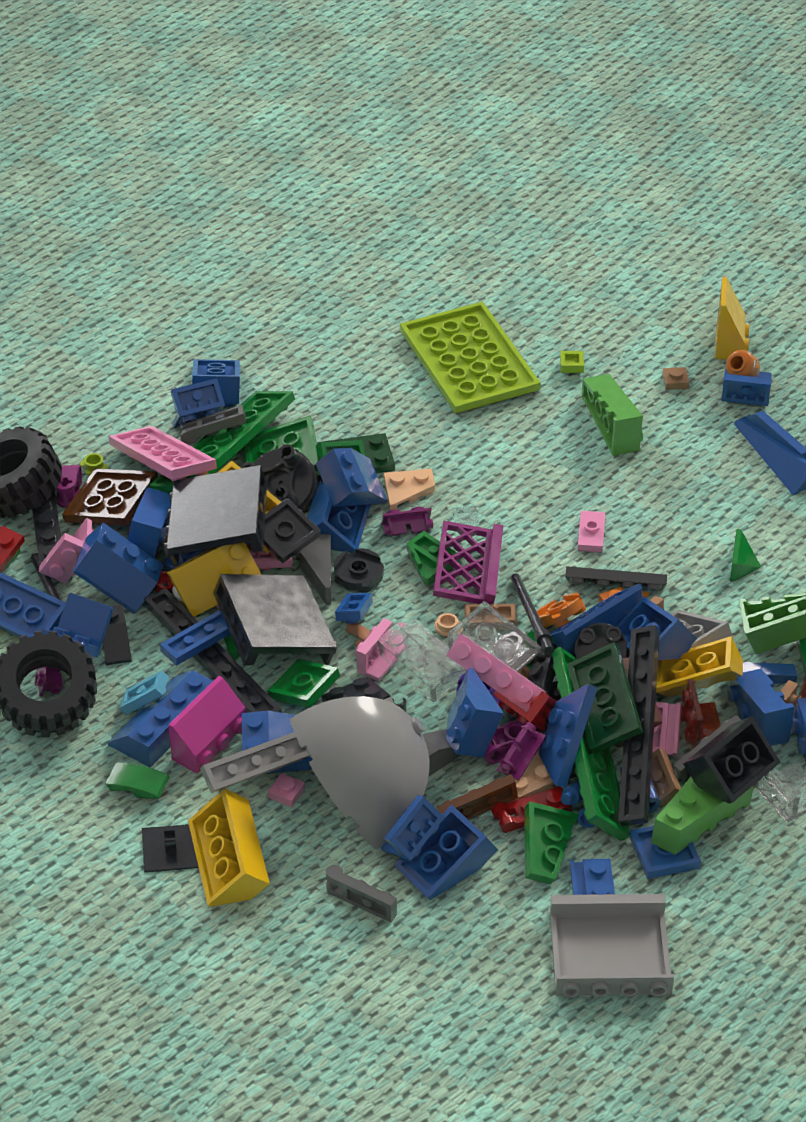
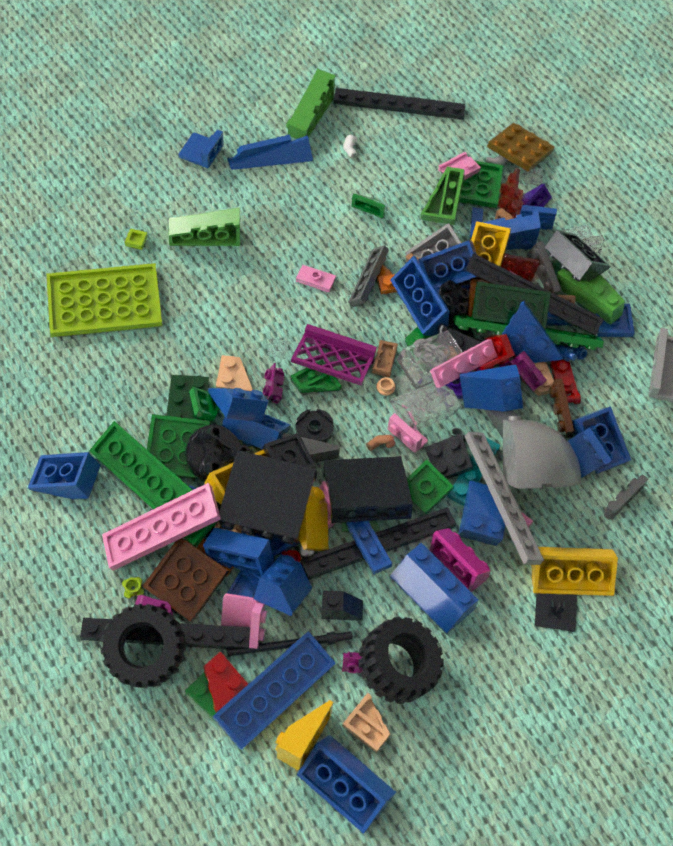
camera: 80 degrees left, 15 degrees up
(84, 622) = (343, 626): blue bracket -> none
(139, 779) = (495, 617): green slope -> none
(144, 692) = (414, 594): medium azure plate -> none
(196, 401) = (109, 490): blue bracket -> none
(212, 424) = (134, 484): dark grey plate -> none
(353, 607) = (358, 437): blue plate -> none
(542, 635) = (436, 327): black bar -> none
(545, 840) = (593, 379): green wing -> none
(558, 612) = (389, 314): orange plate -> none
(592, 877) = (633, 366): blue plate -> none
(675, 378) = (175, 186): medium nougat plate -> none
(731, 326) = (145, 135): yellow slope -> none
(743, 363) = (193, 141): orange head -> none

